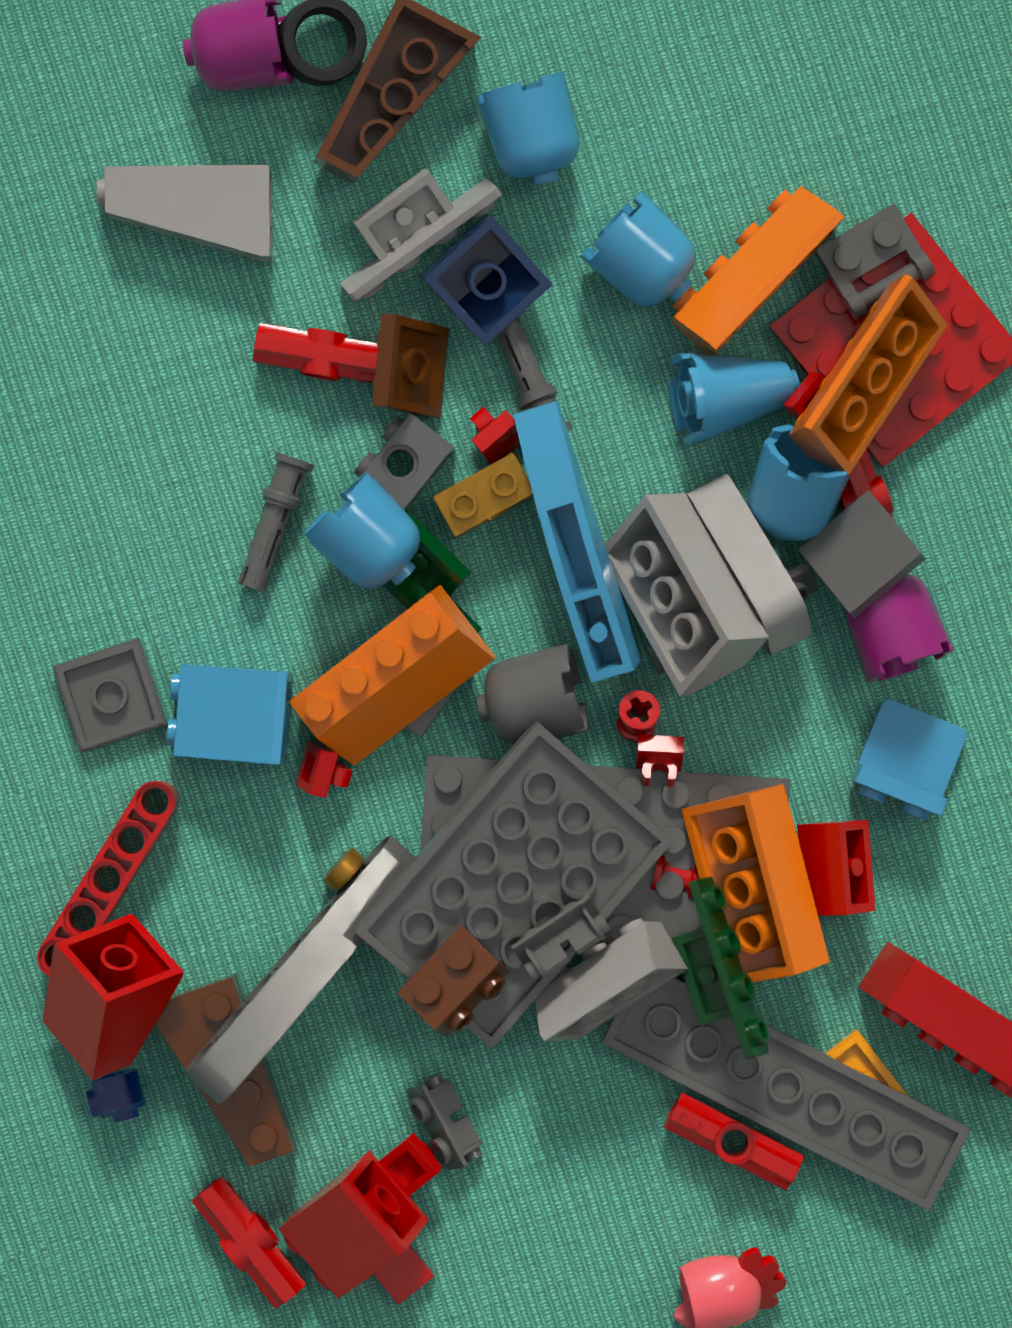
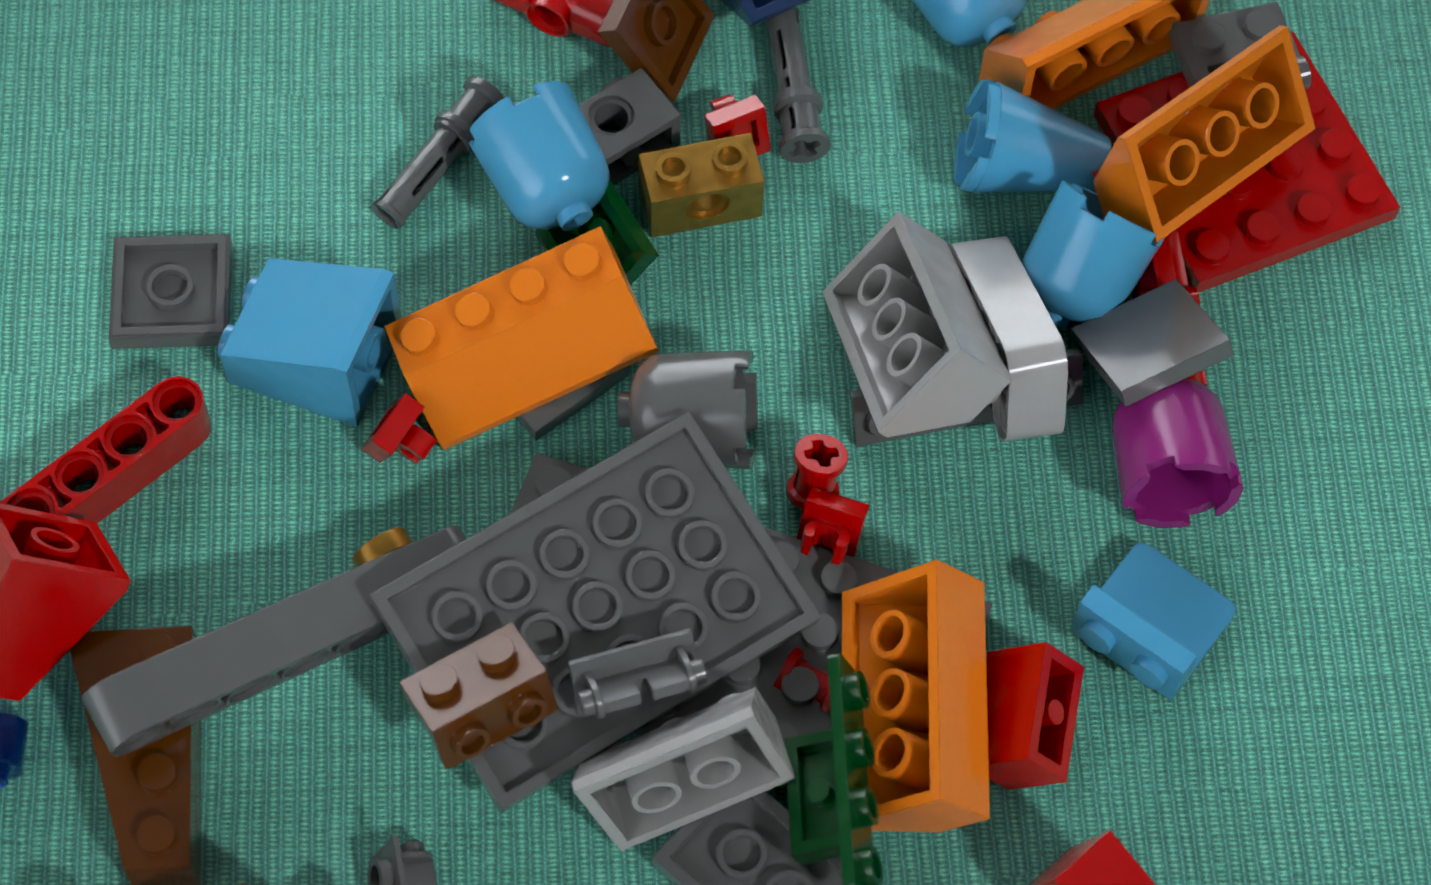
camera: 15 degrees right, 25 degrees down
(576, 544) = (797, 259): dark azure slope -> none

